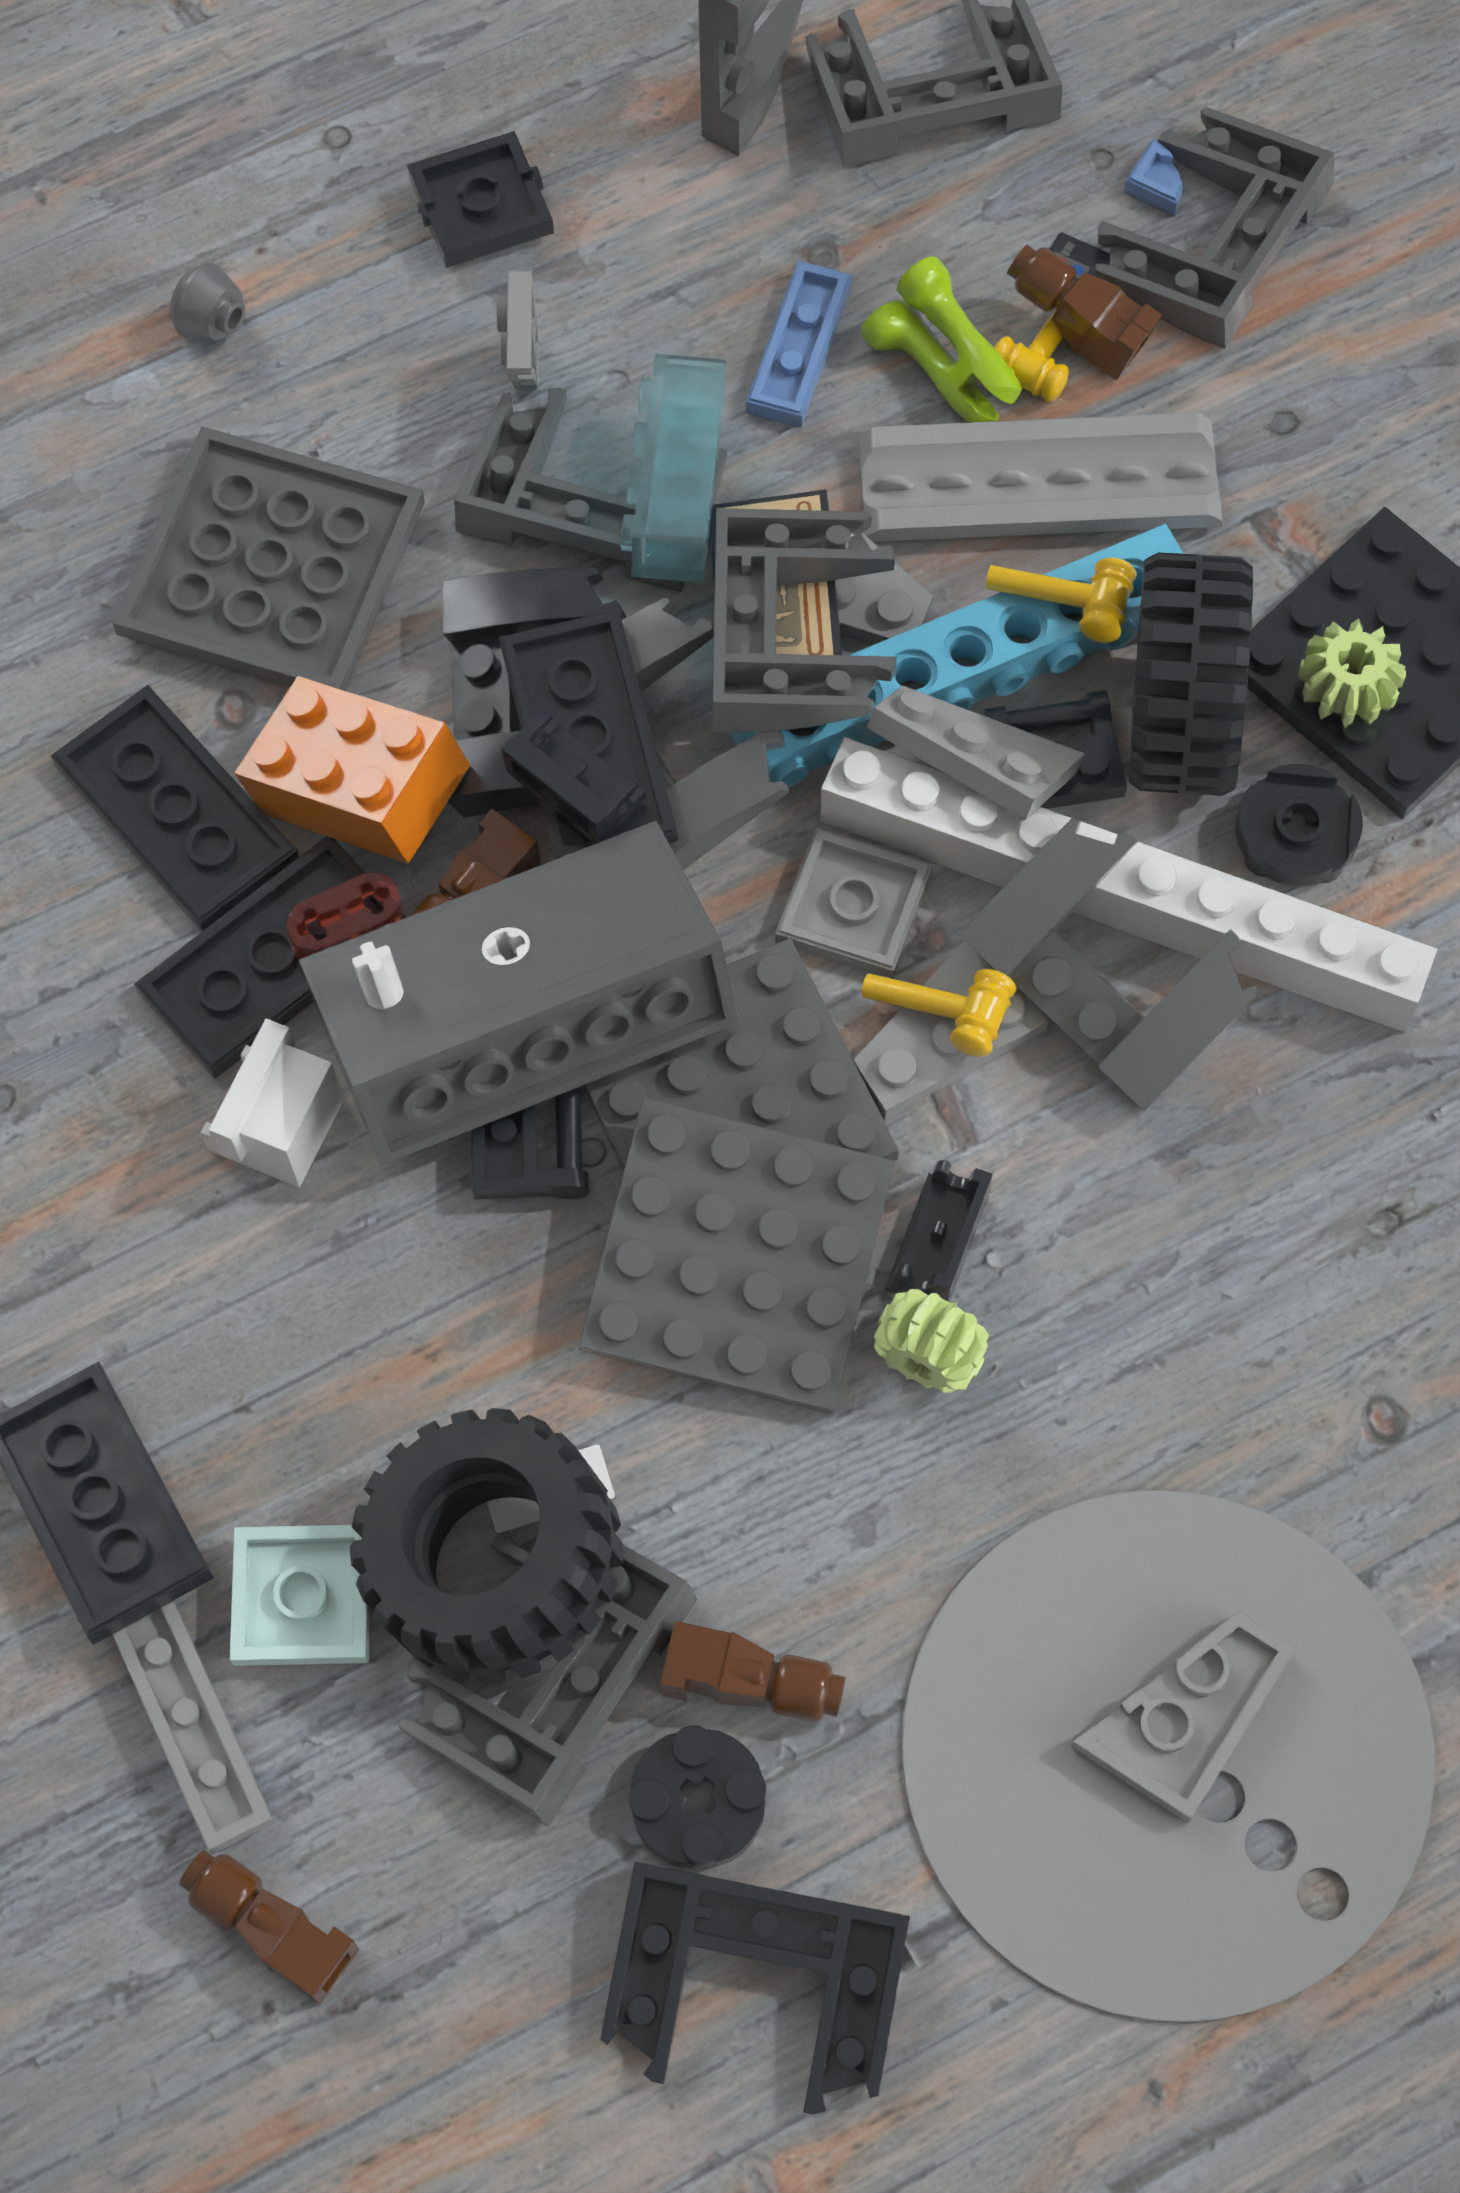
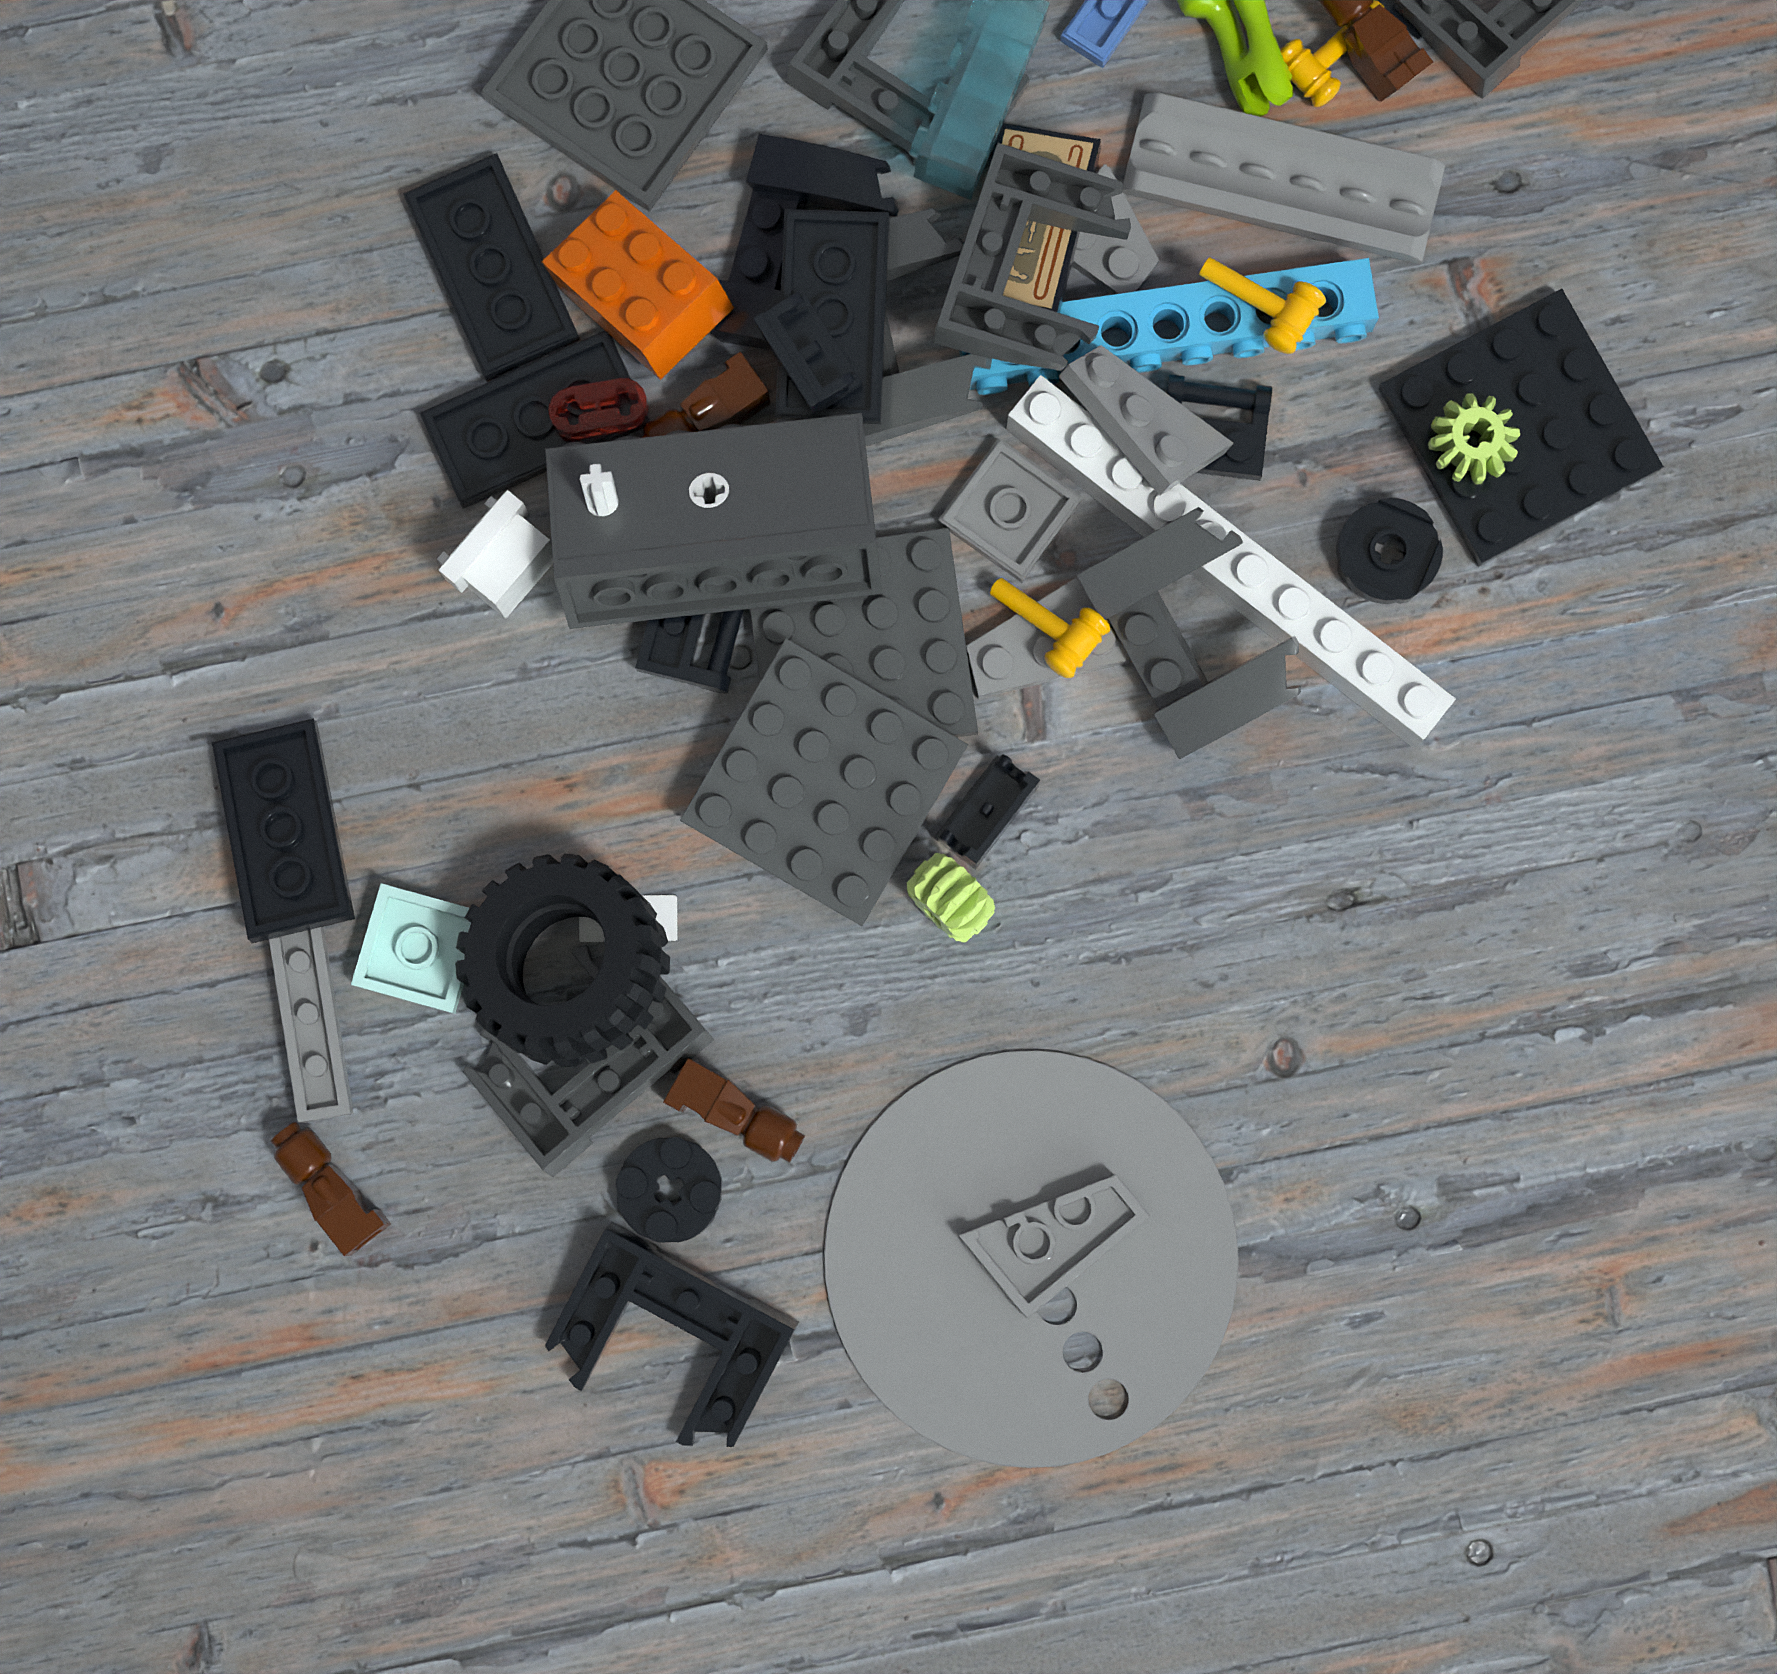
camera: 20 degrees right, 15 degrees up
(1191, 673) = (1333, 409): black tyre -> none

